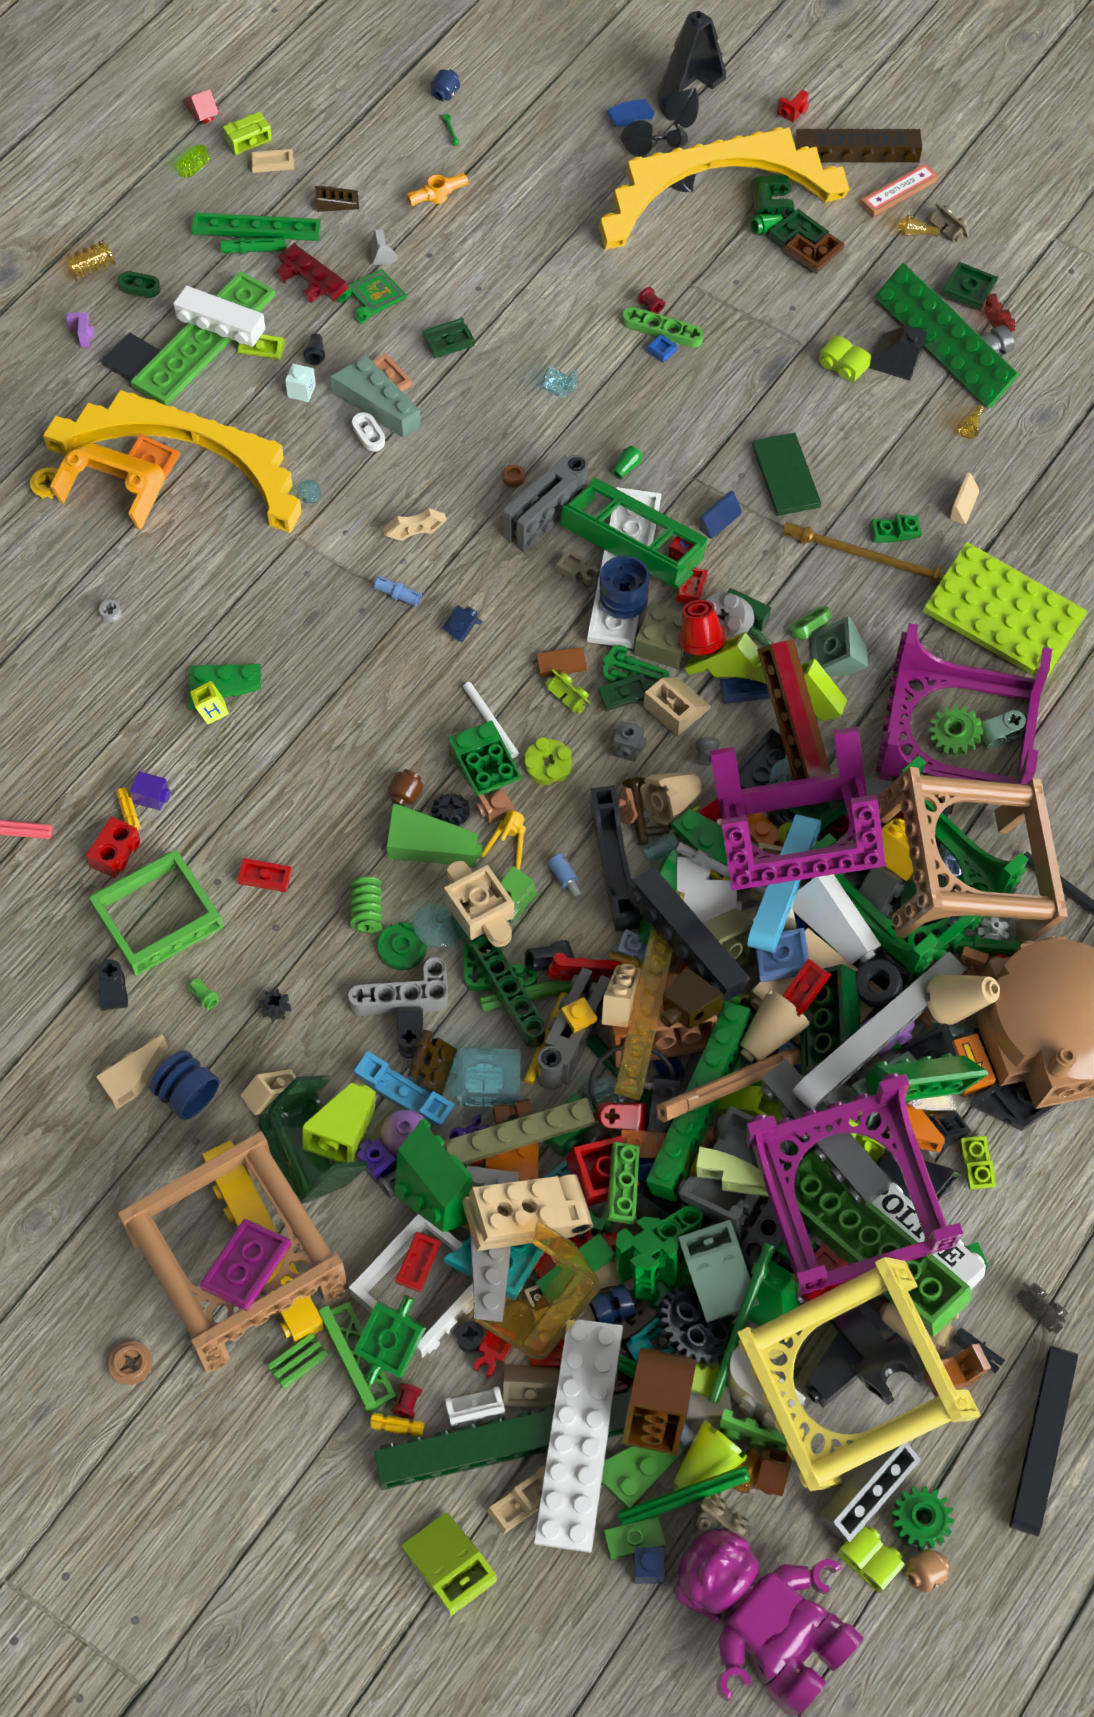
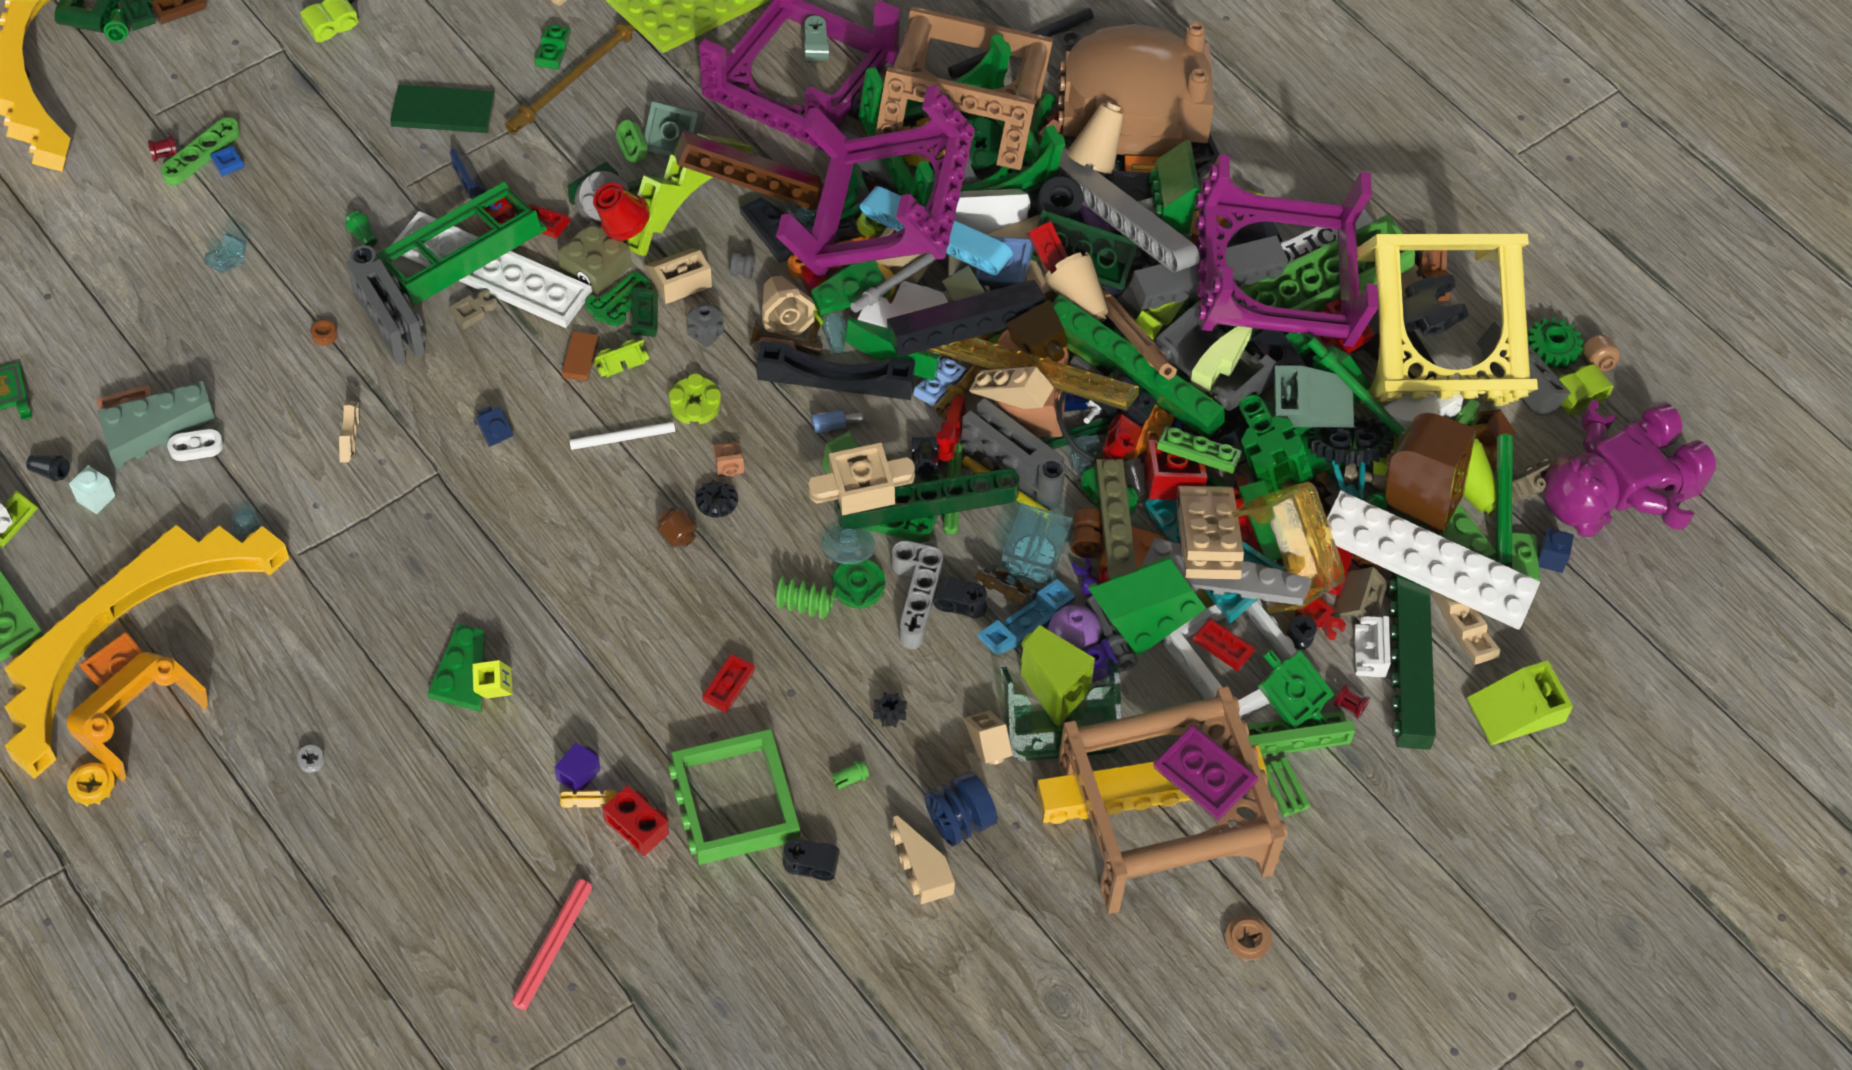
camera: 75 degrees left, 5 degrees down
(397, 1425) = (1372, 717): yellow axle -> none
(398, 591) = (423, 472): medium blue pin -> none
(428, 839) = (746, 524): bright green slope -> none
(448, 338) = (106, 338): dark green plate -> none
(483, 758) = (677, 448): green slope -> none
(510, 826) = (760, 449): yellow plant -> none
(579, 1014) = (1016, 431): yellow plate -> none
(624, 587) = (532, 264): dark blue wheel -> none
(742, 690) = (684, 219): dark blue hinge -> none
(953, 720) = (808, 61): bright green gear -> none
(1035, 1294) = (1391, 199): clear smoke hinge -> none
(1043, 1441) = (1538, 256): black beam -> none

